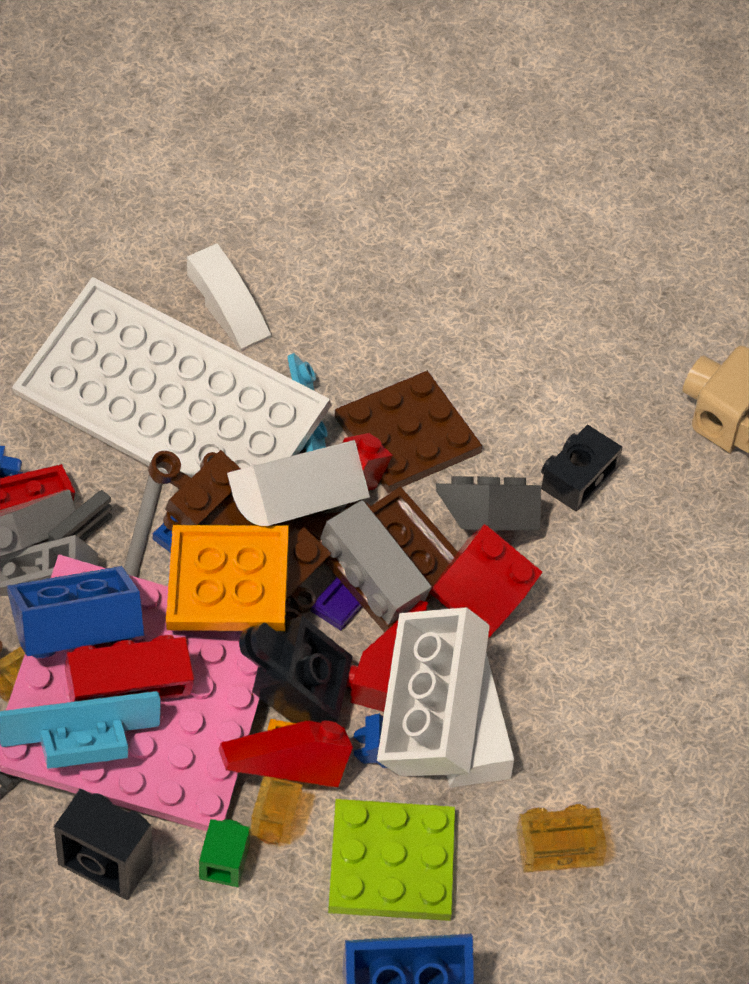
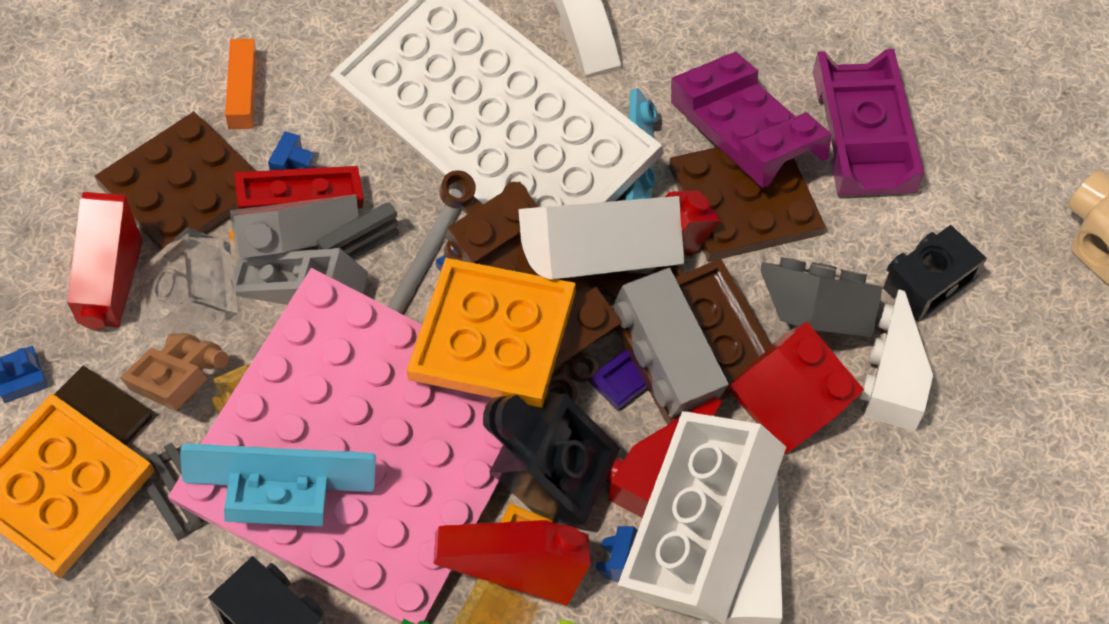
camera: 15 degrees right, 5 degrees up
(76, 611) = (305, 339): blue slope -> none
(130, 669) = (350, 420): red brick -> none
(392, 363) = (745, 118): none -> magenta piece
(501, 351) = (868, 126): none -> magenta piece
(571, 554) = (902, 371): none -> white slope

